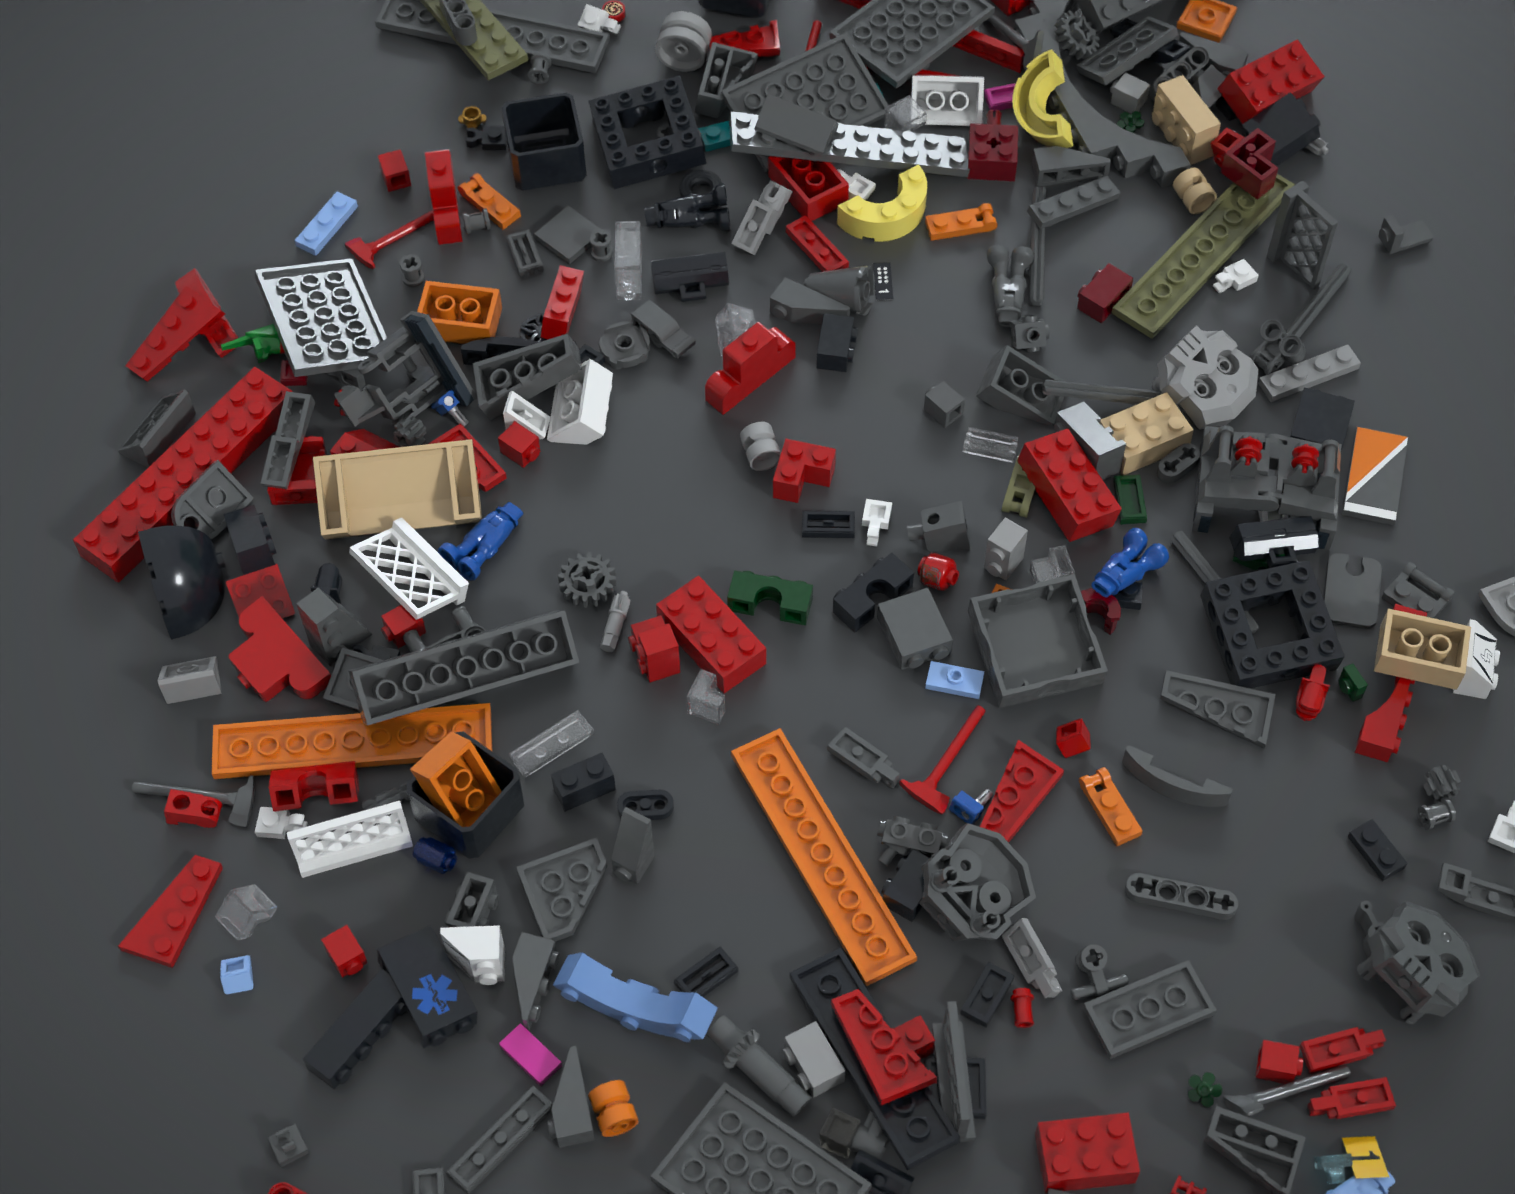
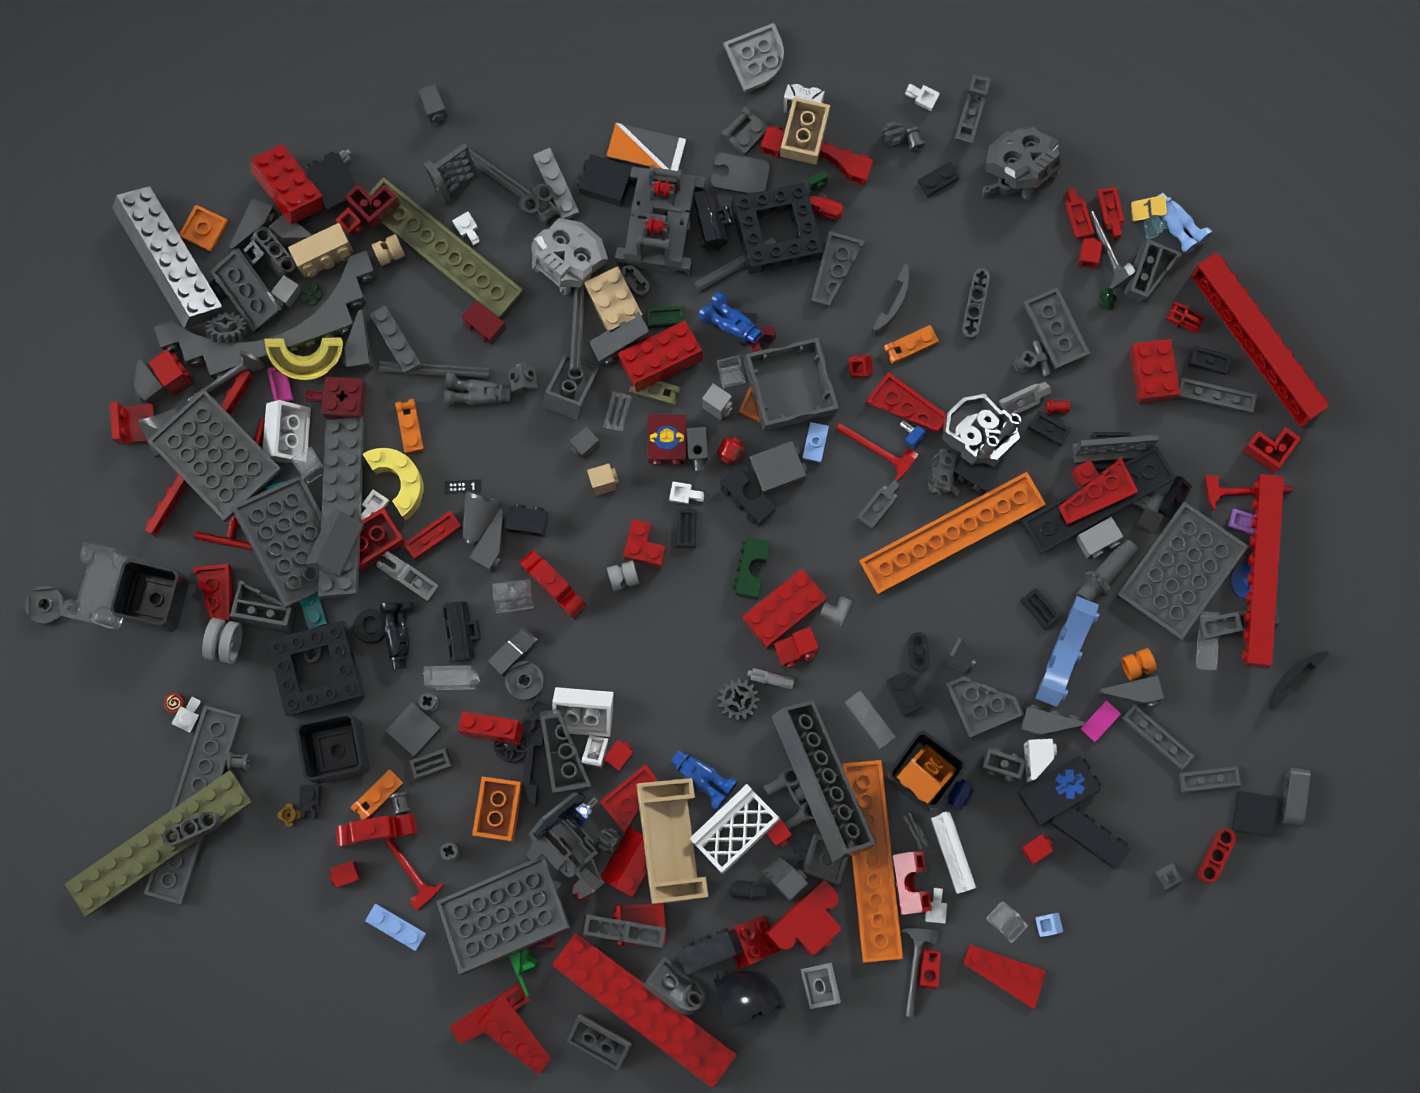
camera: 85 degrees left, 20 degrees up
(890, 417) = (603, 479): none -> tan brick
(951, 485) = (667, 439): none -> dark red panel

